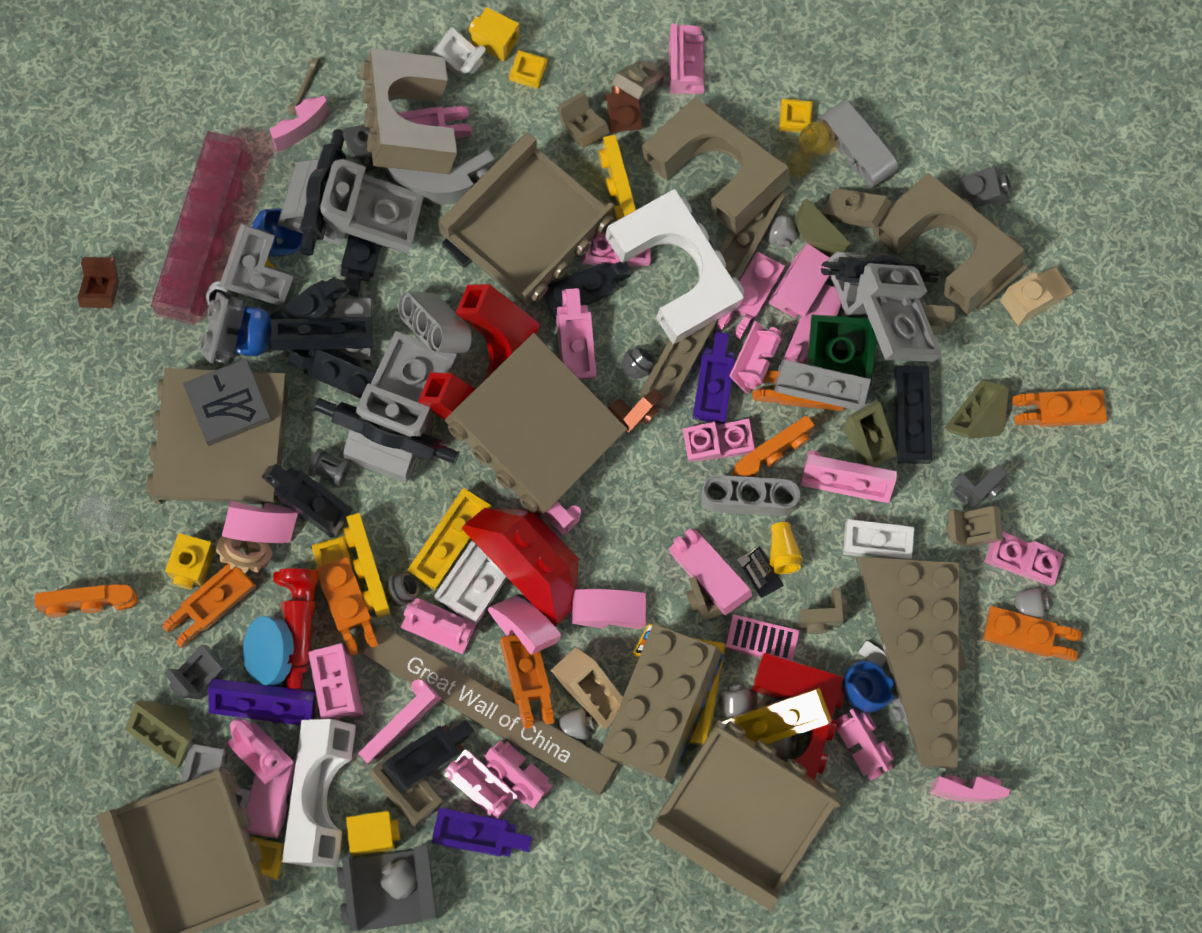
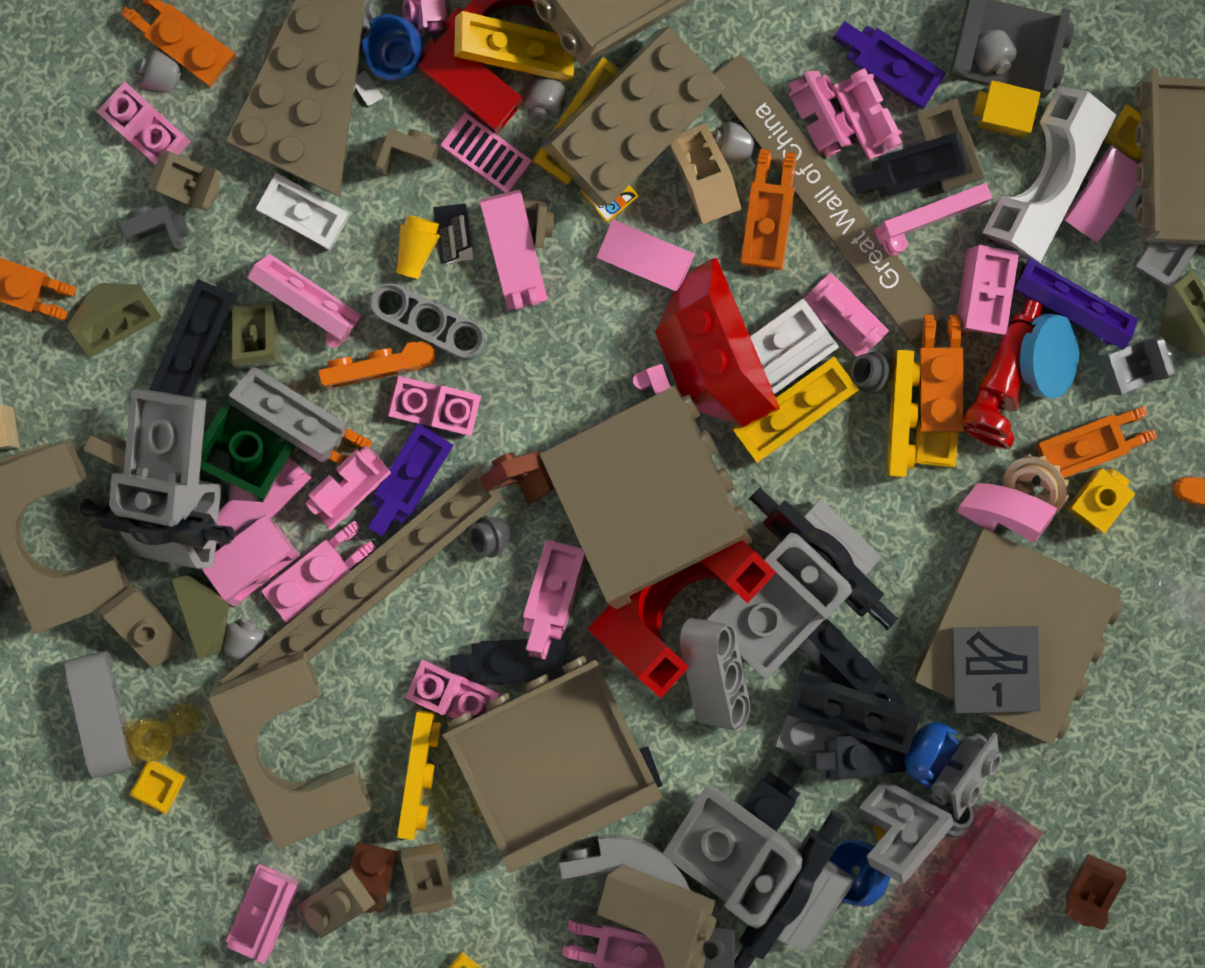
camera: 150 degrees left, 15 degrees up
(257, 750) = (1099, 249): bright pink hinge -> none
(308, 499) = (941, 516): black hinge -> none
(329, 468) = (899, 538): dark grey bush -> none
(527, 622) = (747, 273): bright pink slope -> none
(670, 222) = (365, 580): white arch -> none

